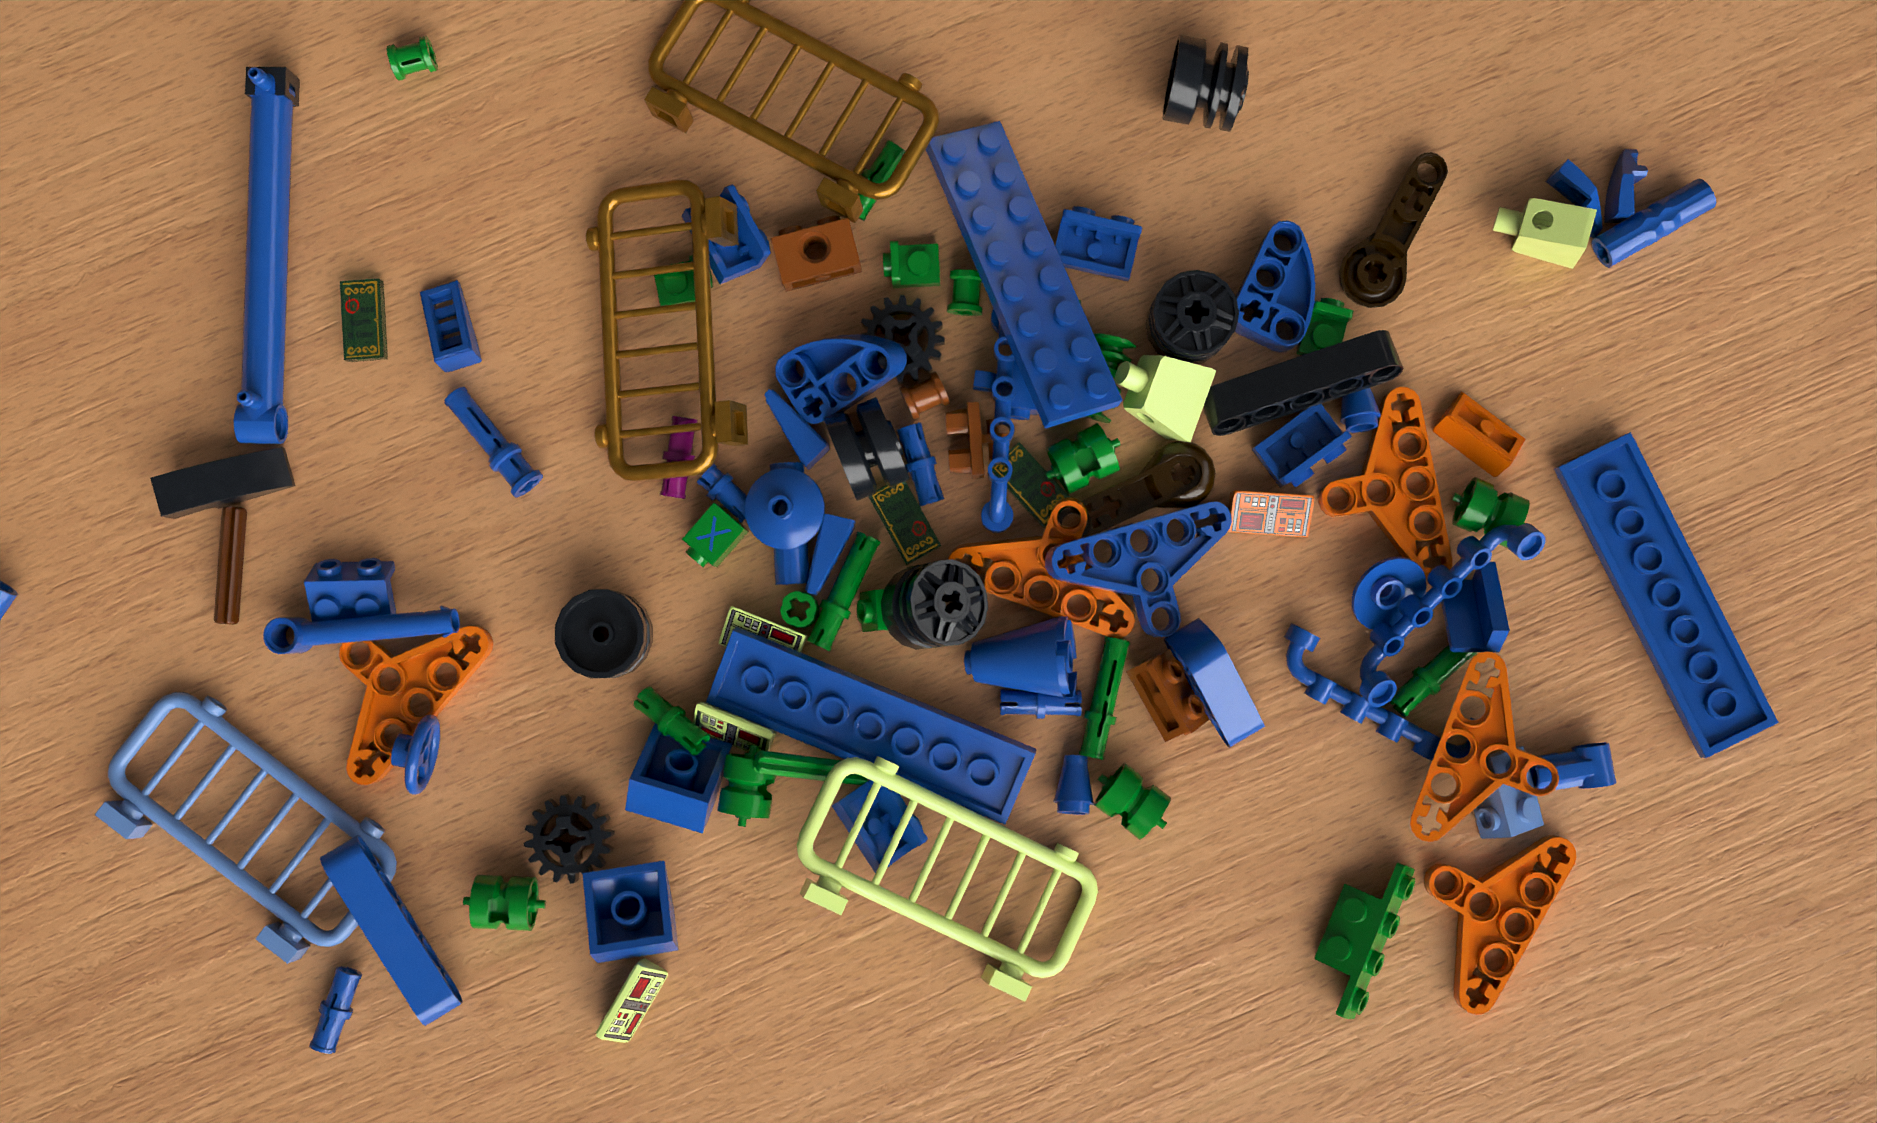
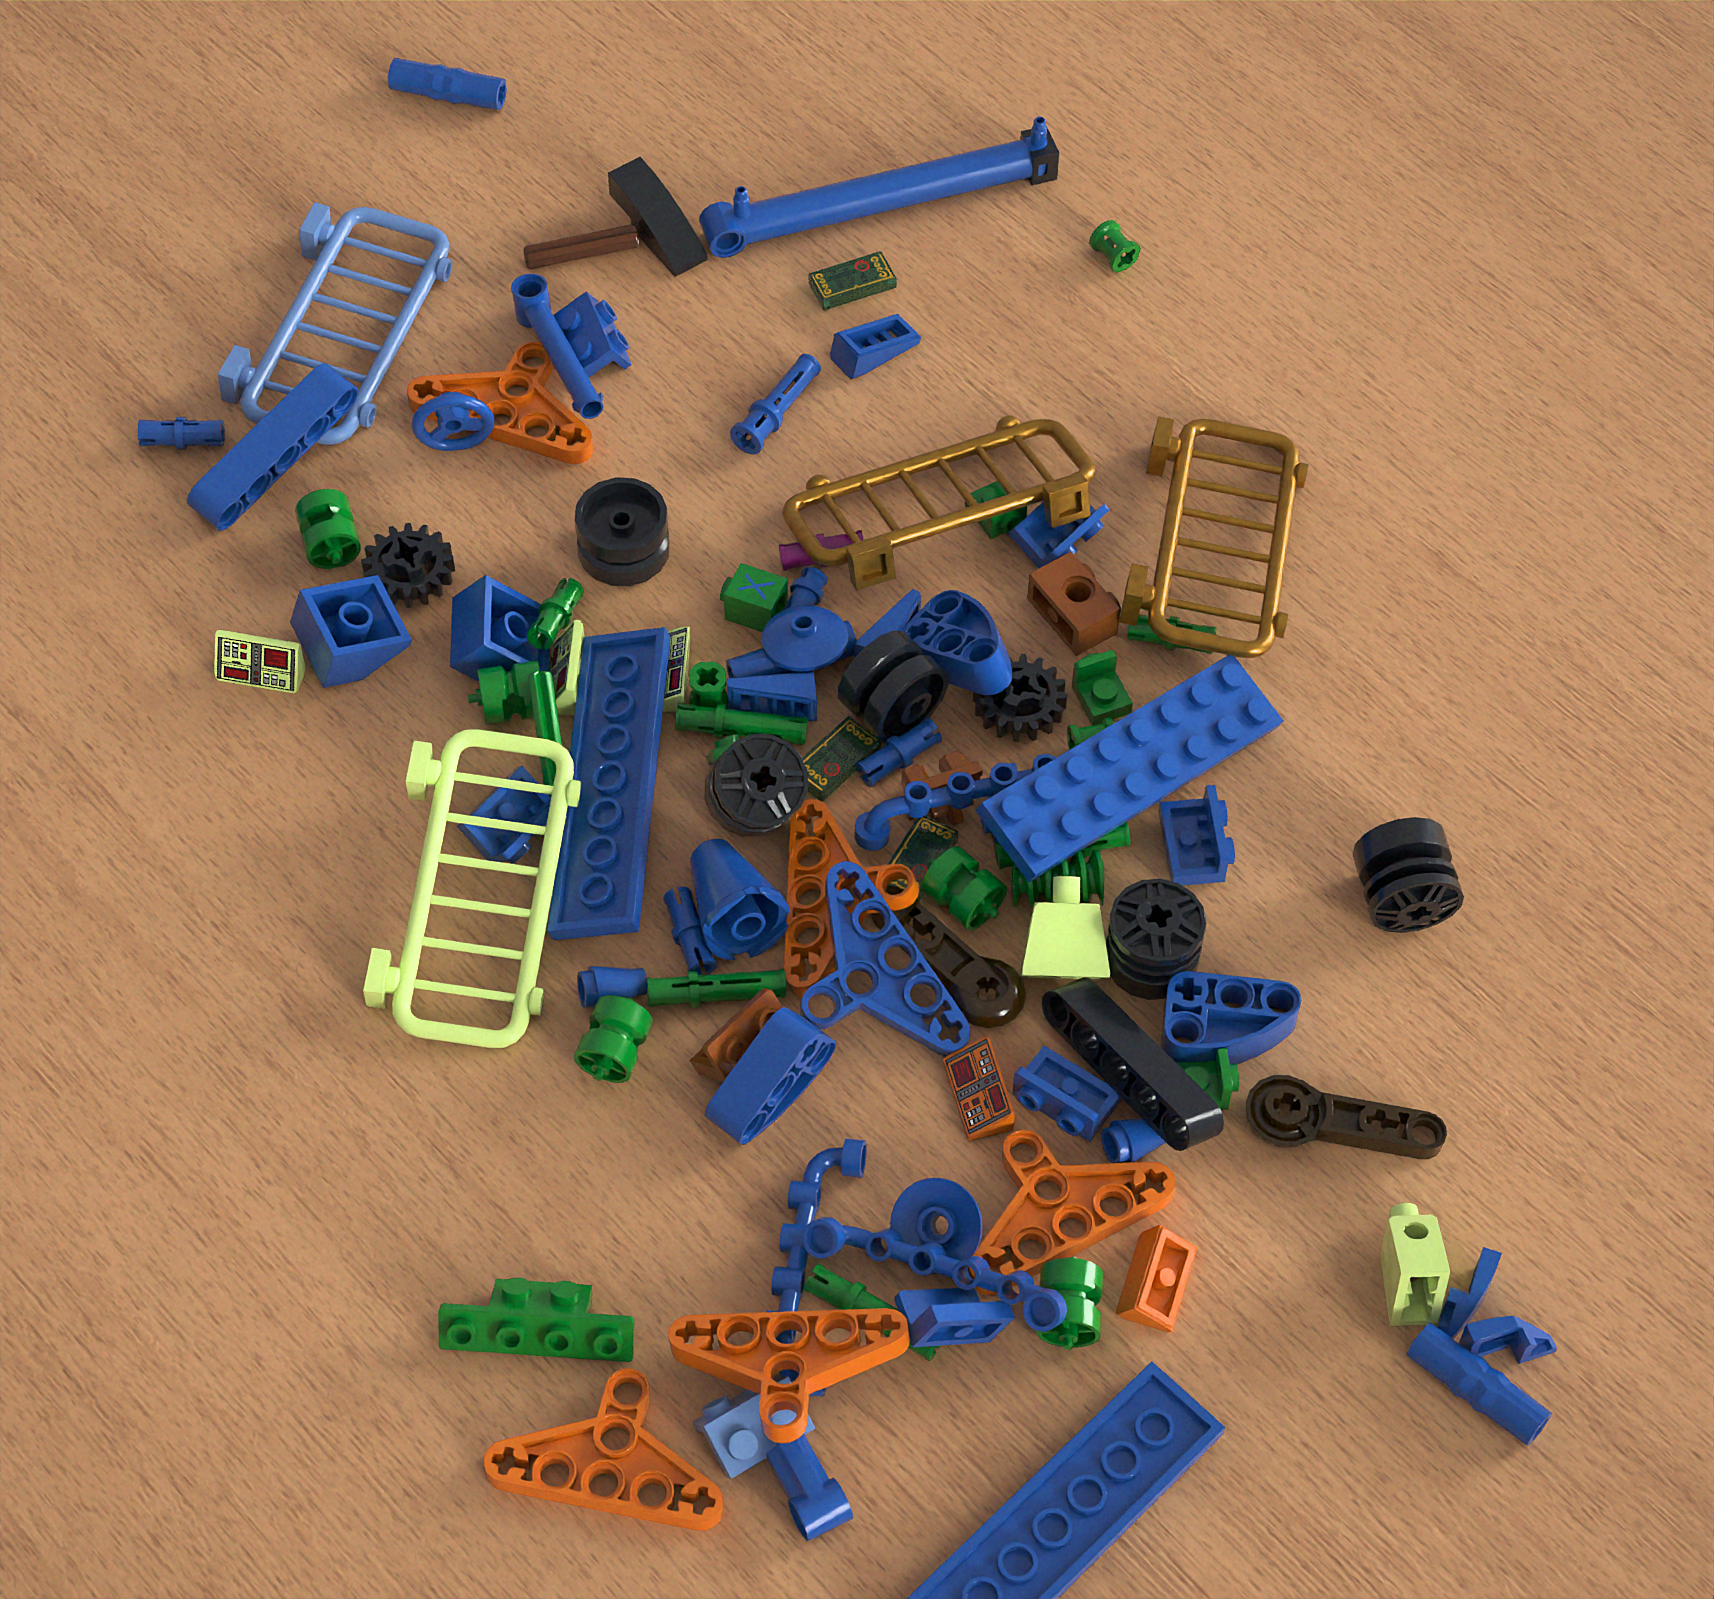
camera: 65 degrees right, 30 degrees down
(924, 395) = (970, 734): dark orange bush -> none

